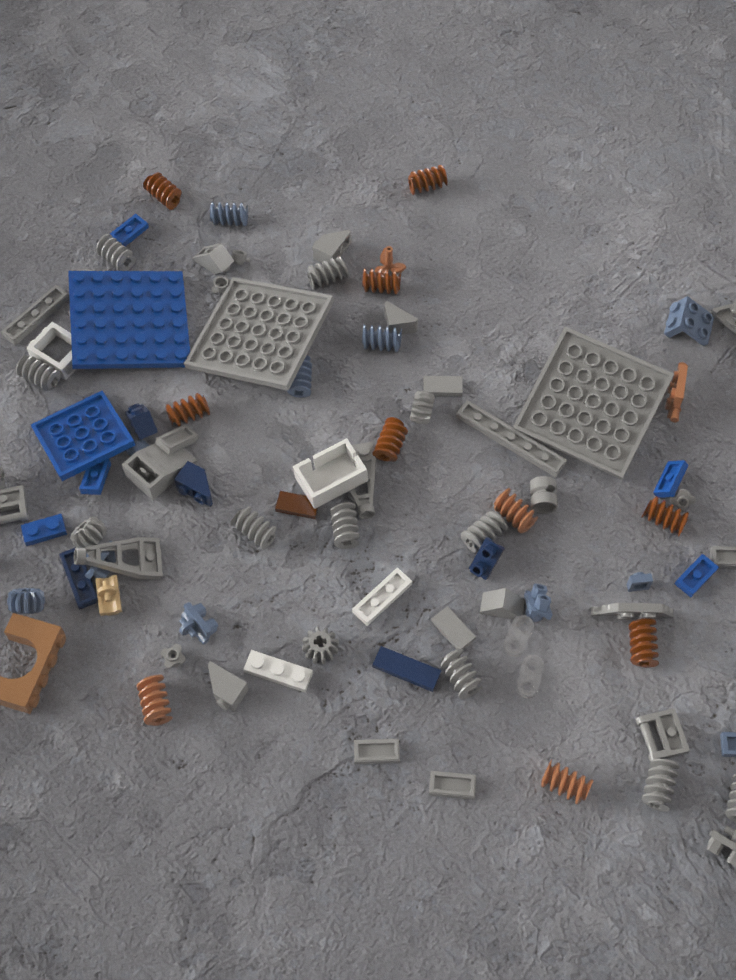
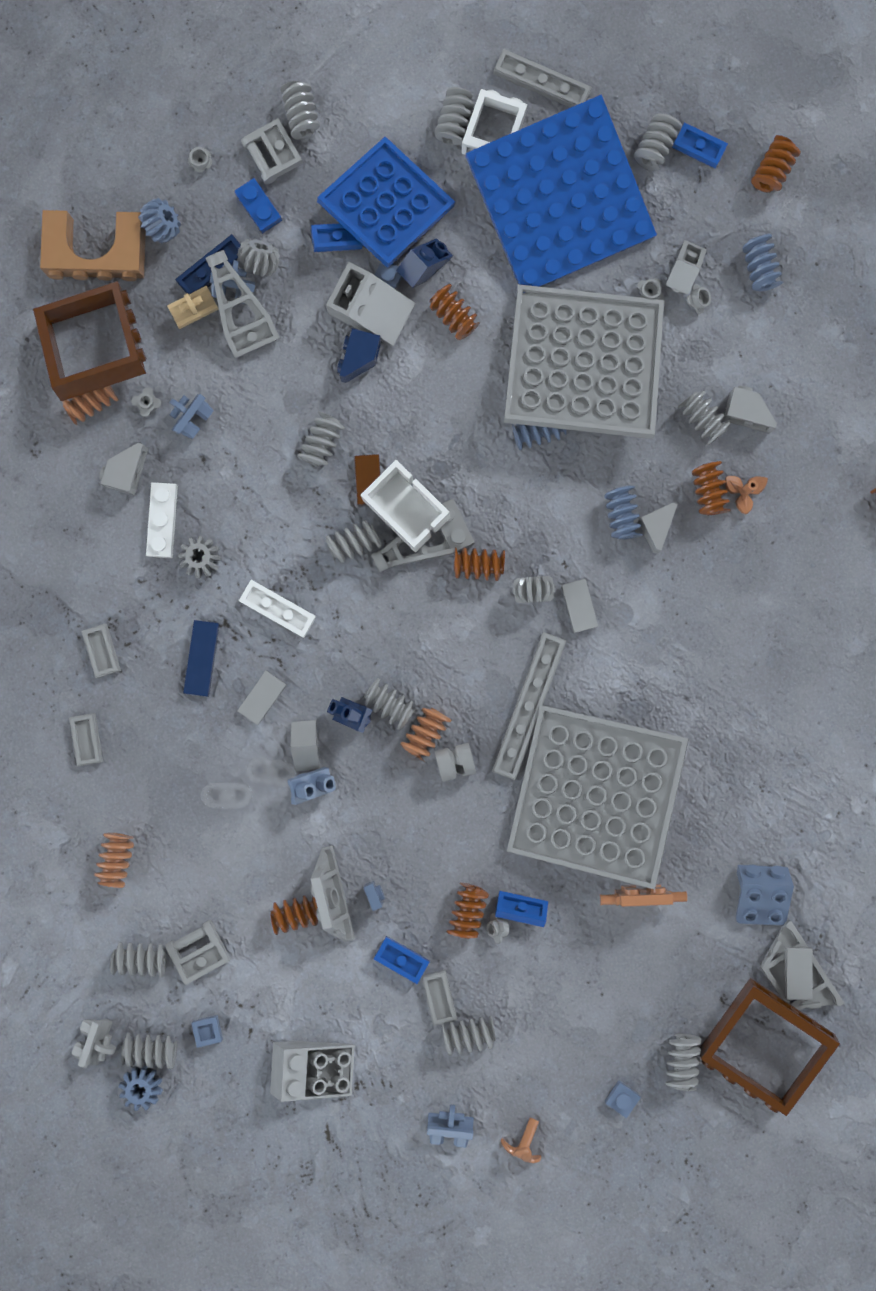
camera: 75 degrees right, 25 degrees up
(142, 681) = (100, 376): none -> reddish brown window
(176, 439) = (410, 313): light grey tile -> none
(460, 674) = (207, 719): light grey piece -> none

